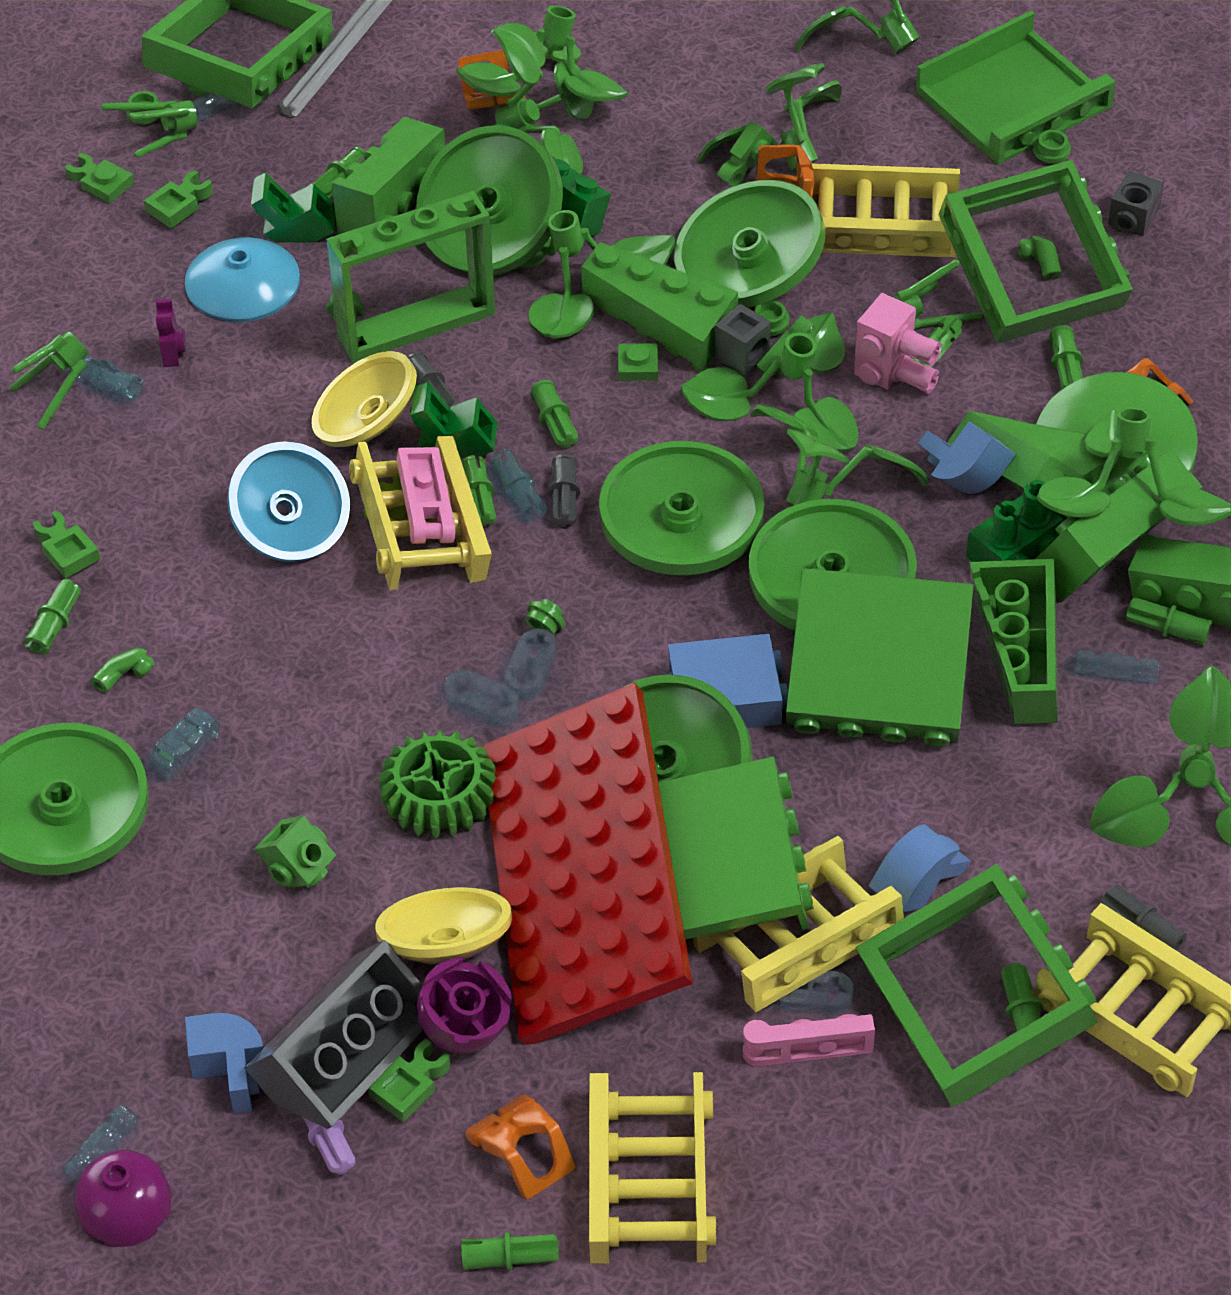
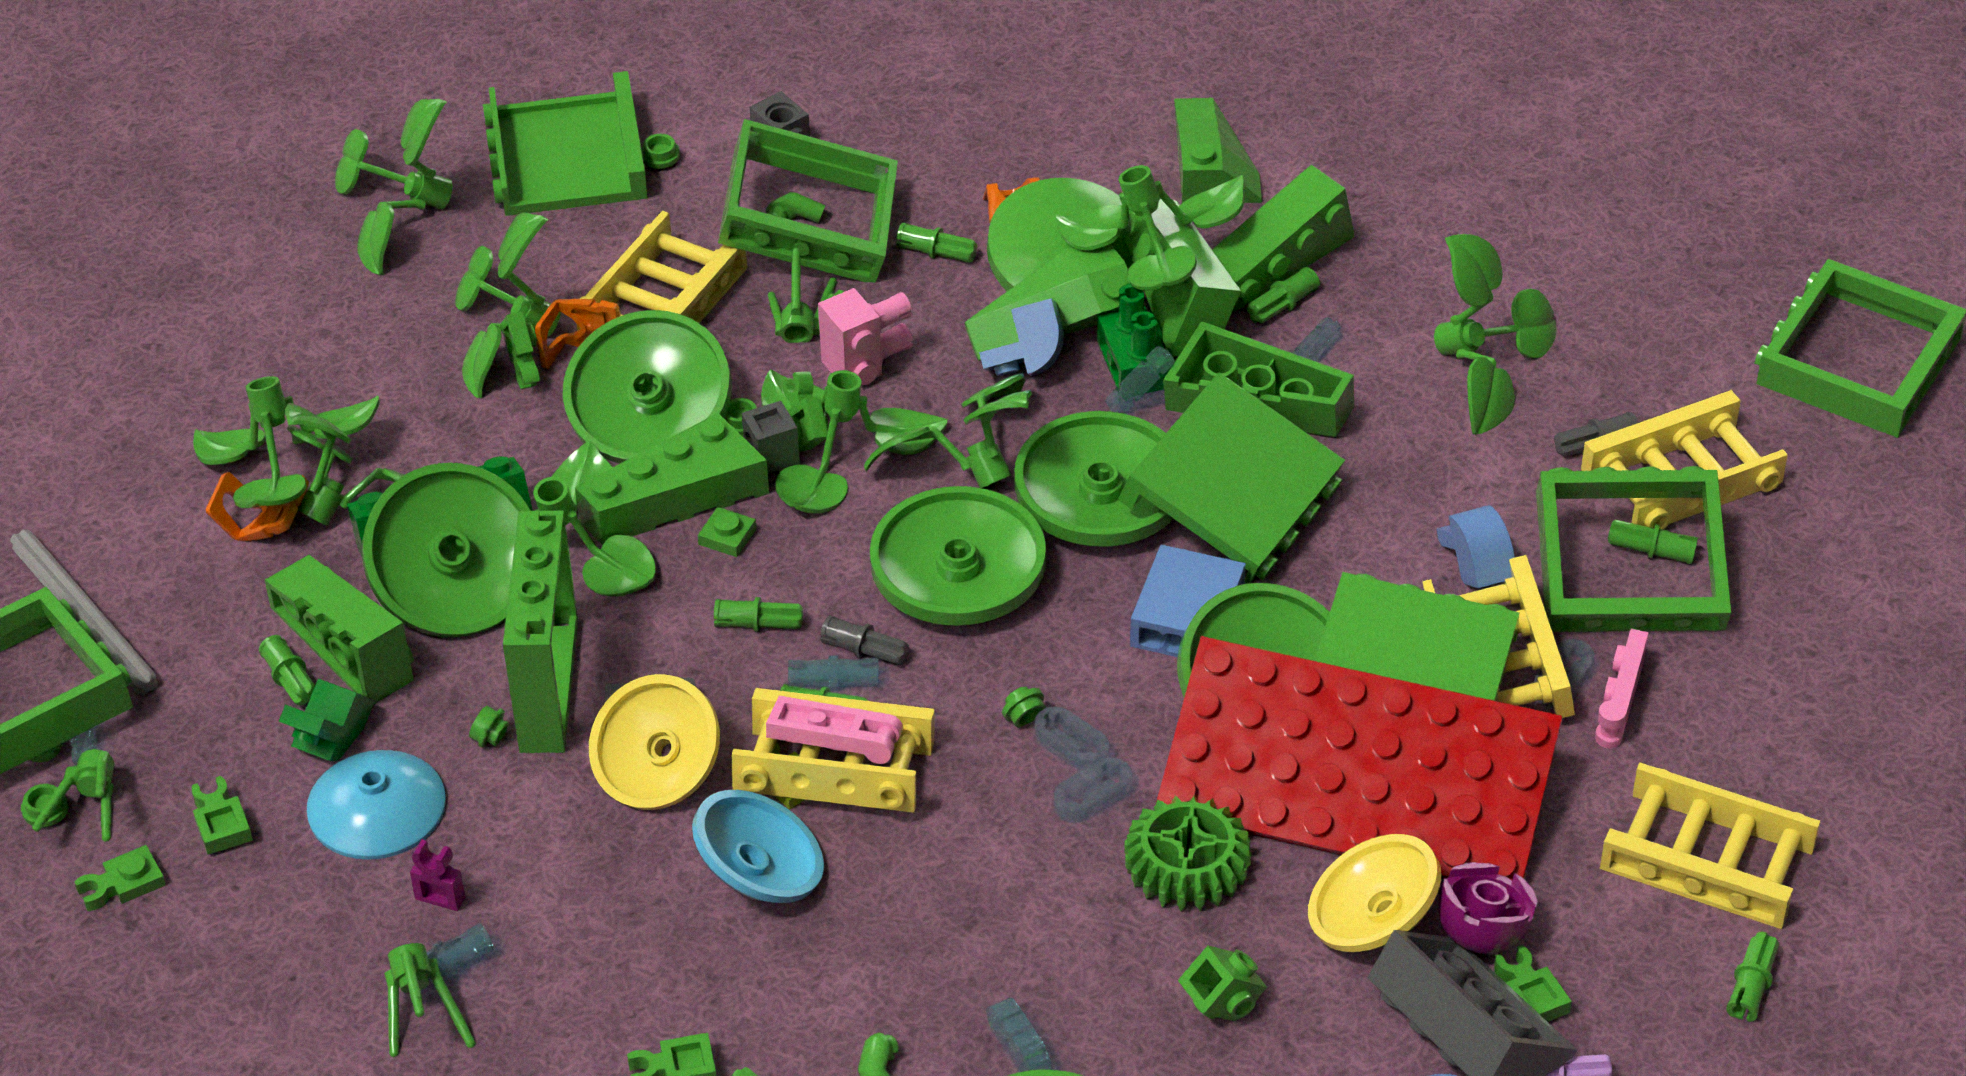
camera: 65 degrees left, 5 degrees down
(467, 422) = (733, 686): green brick -> none
(500, 1136) = (1619, 935): orange piece -> none
(970, 550) = (1140, 380): none -> clear light blue axle

